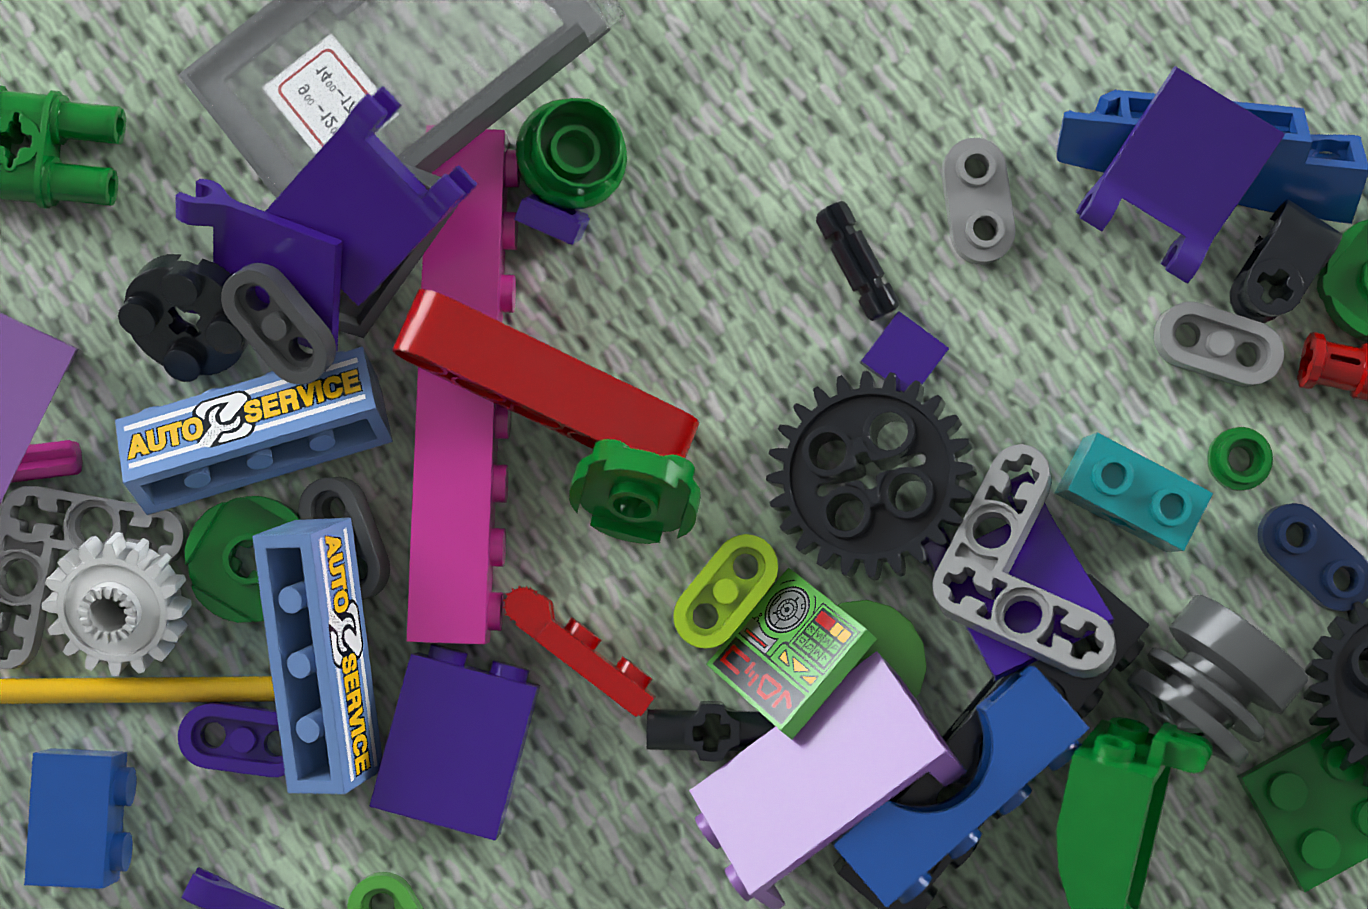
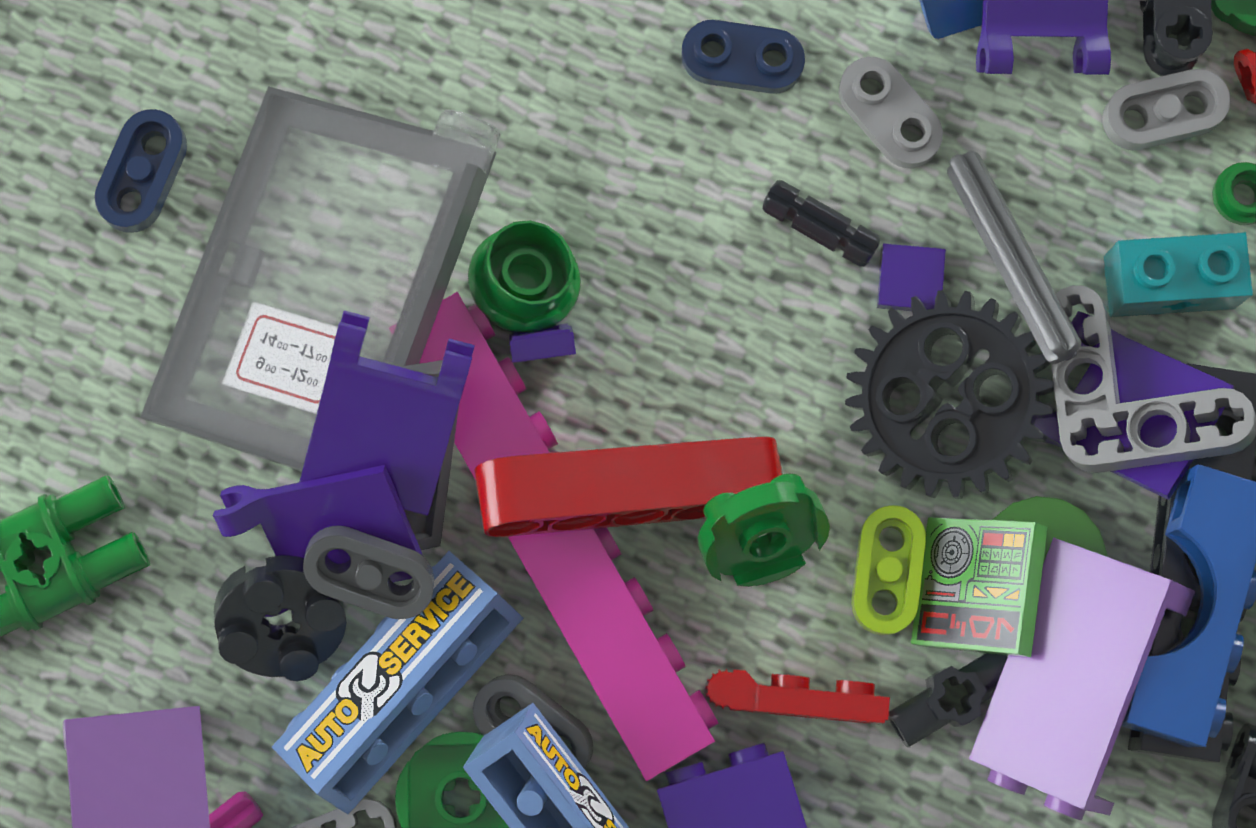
camera: 30 degrees left, 5 degrees down
(877, 77) = (742, 60): none -> dark blue plate
(999, 392) = (1013, 258): none -> dark grey axle

